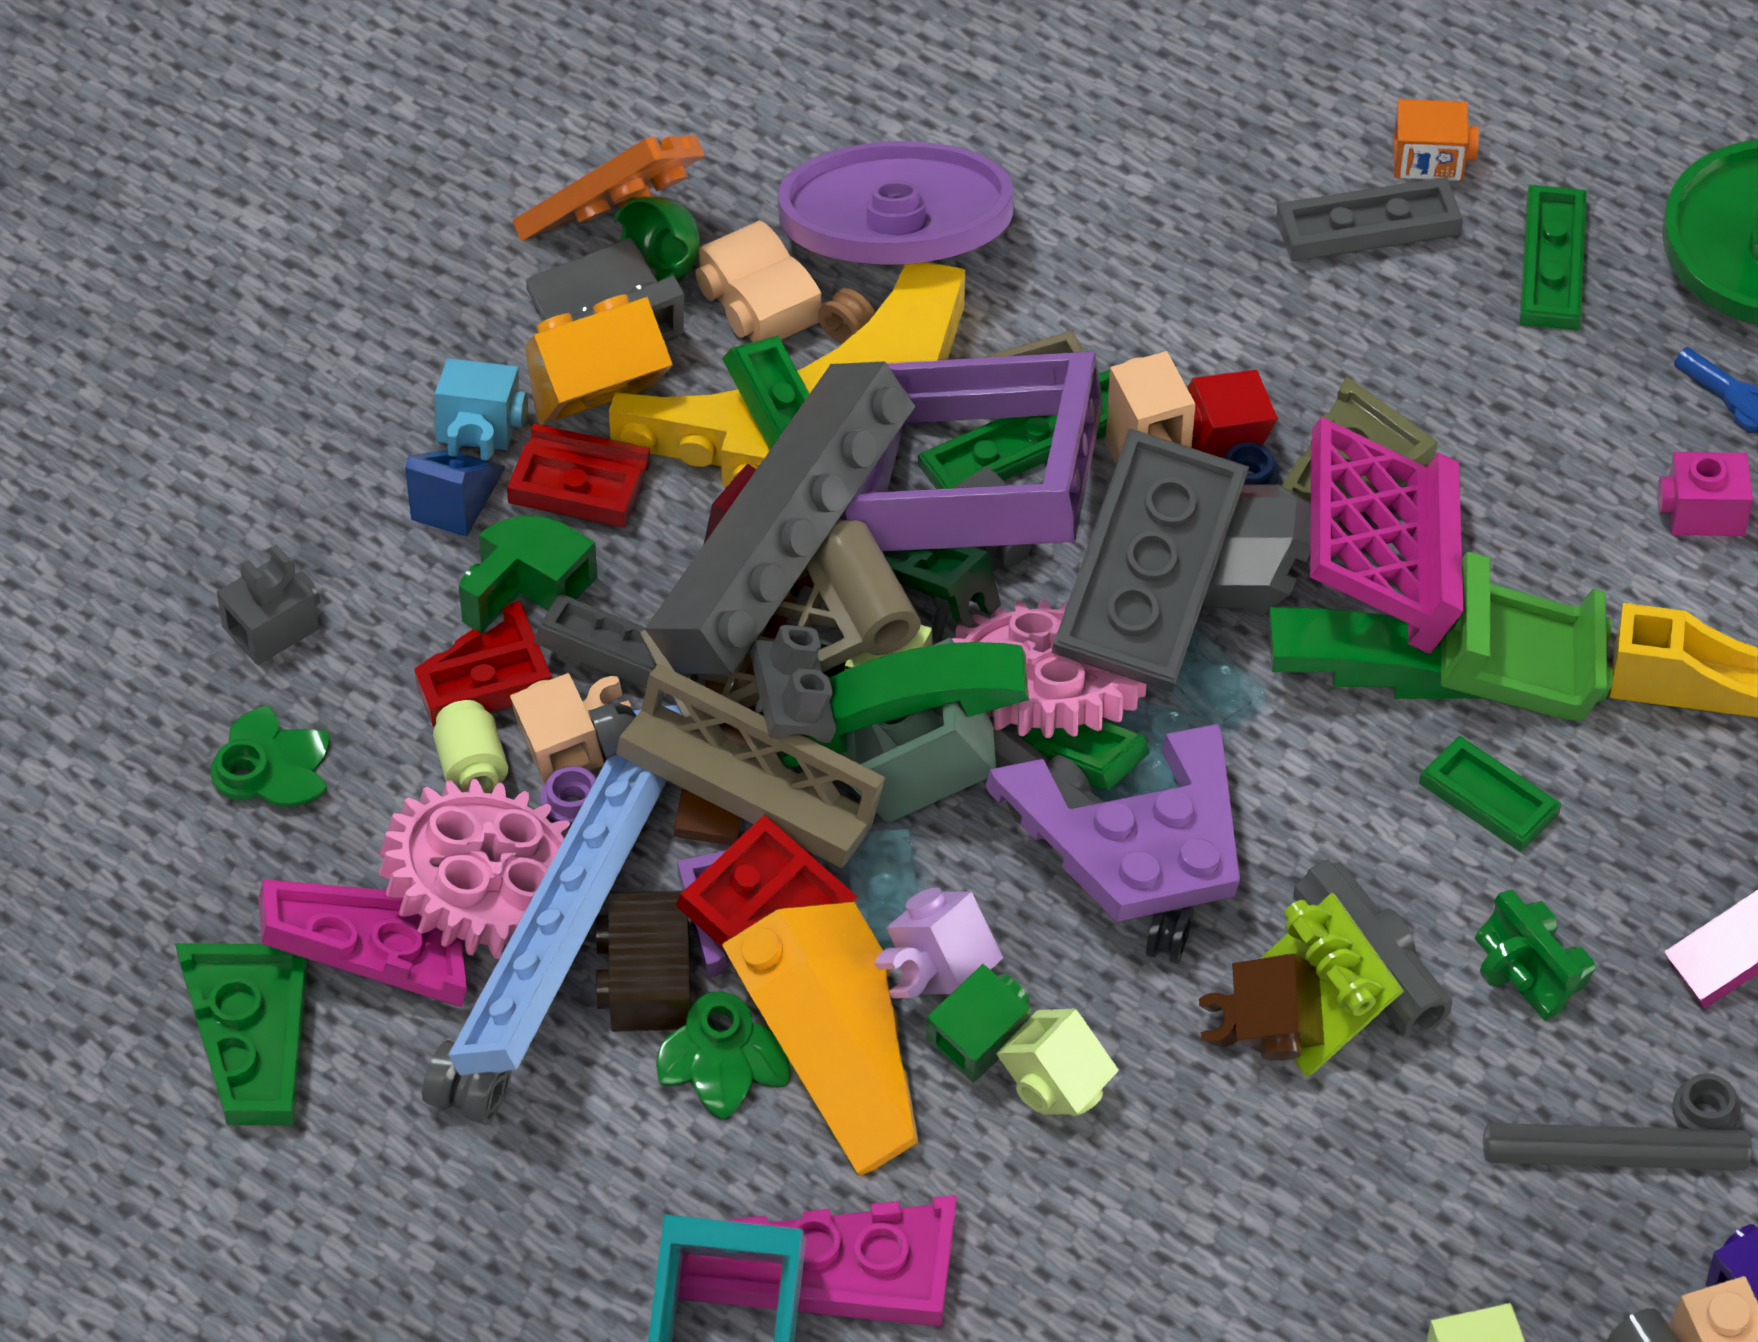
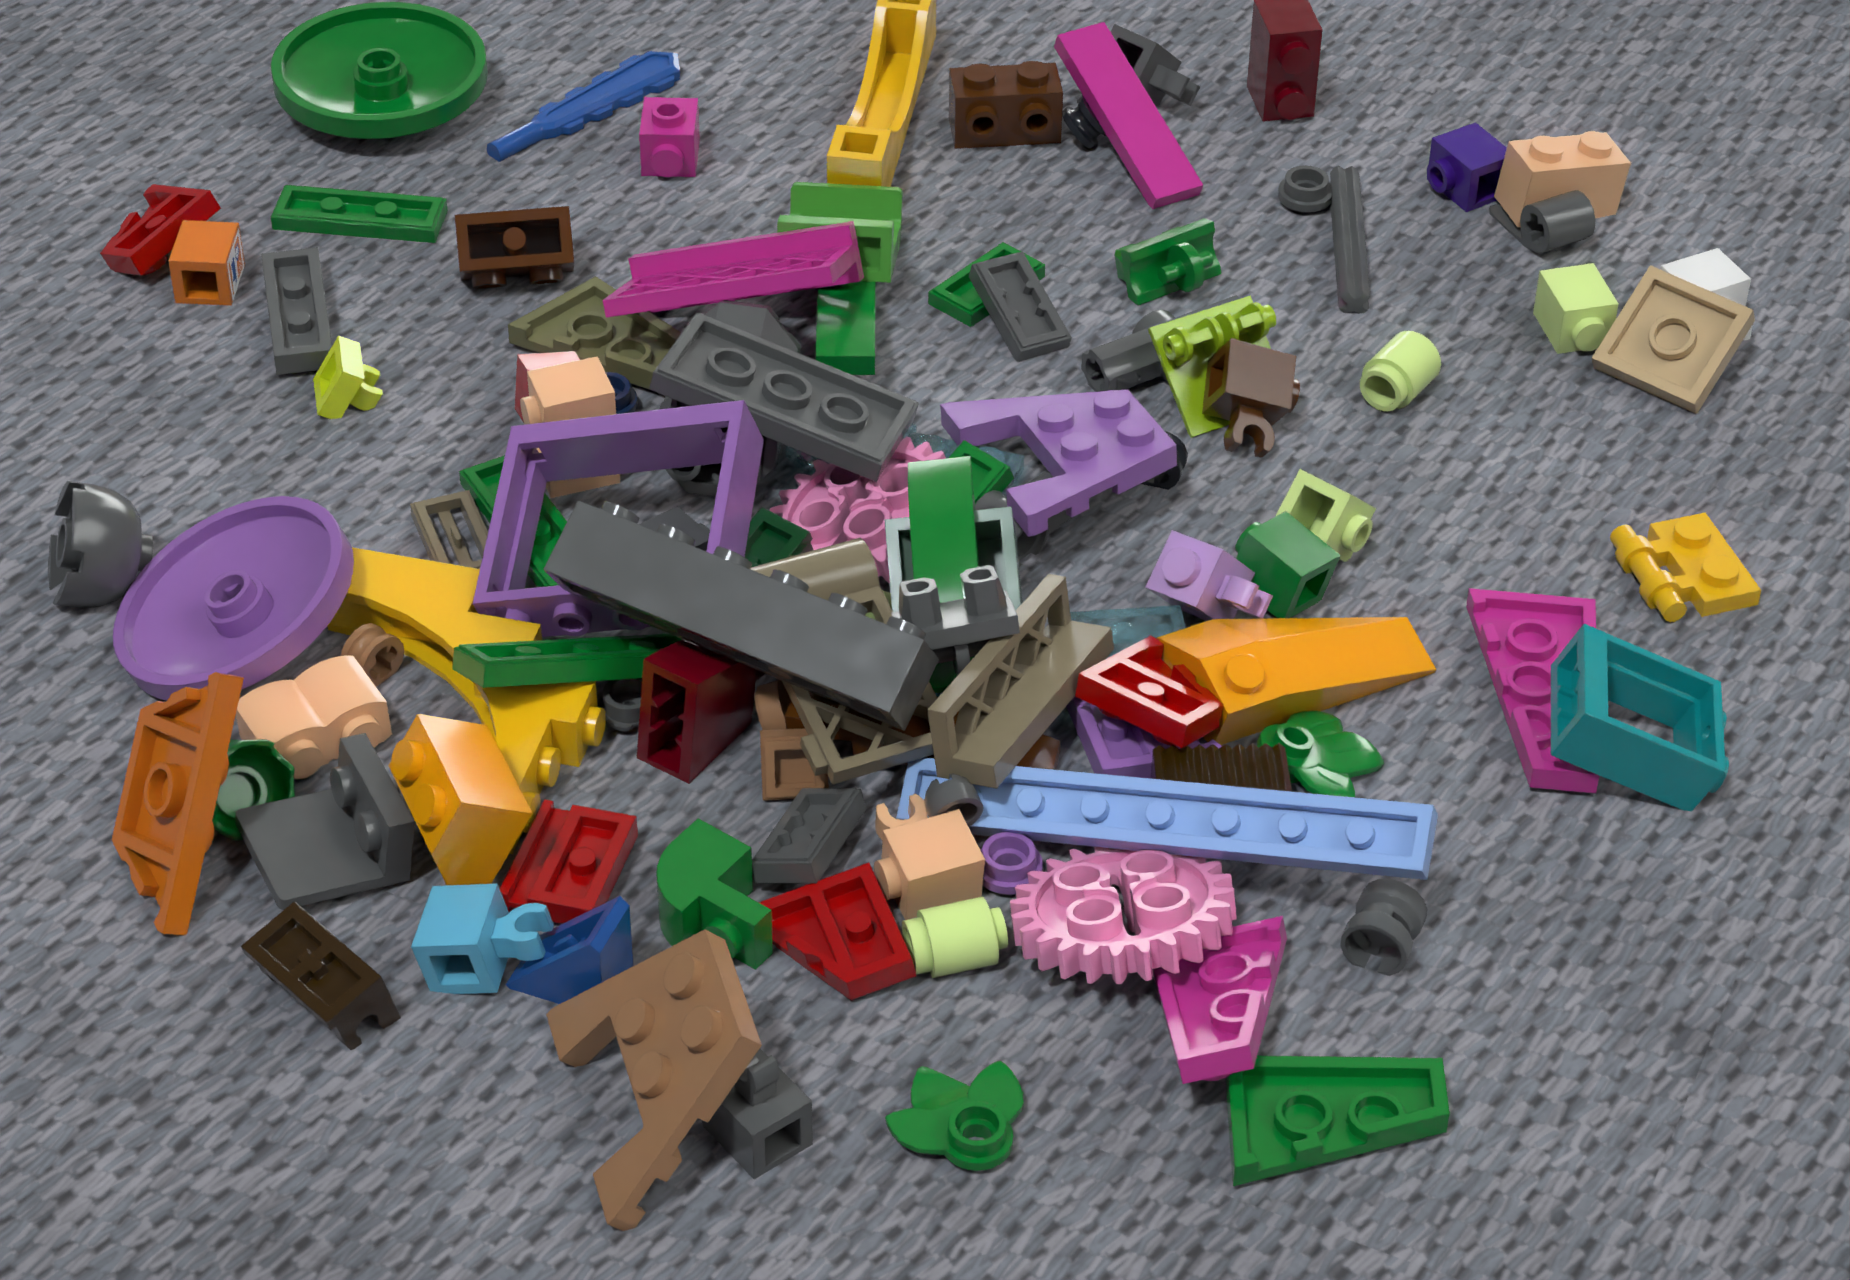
camera: 90 degrees left, 10 degrees down
(276, 525) = (683, 1048): none -> medium nougat wing
(439, 317) = (321, 973): none -> dark brown hinge
(973, 102) = (95, 546): none -> dark grey cylinder
(1252, 258) = (345, 381): none -> neon yellow tile
(1342, 1167) = (1399, 371): none -> yellowish green brick
(1430, 812) = (1019, 306): none -> dark grey plate
(1473, 367) = (513, 245): none -> reddish brown brick
(1491, 97) = (145, 241): none -> red wing

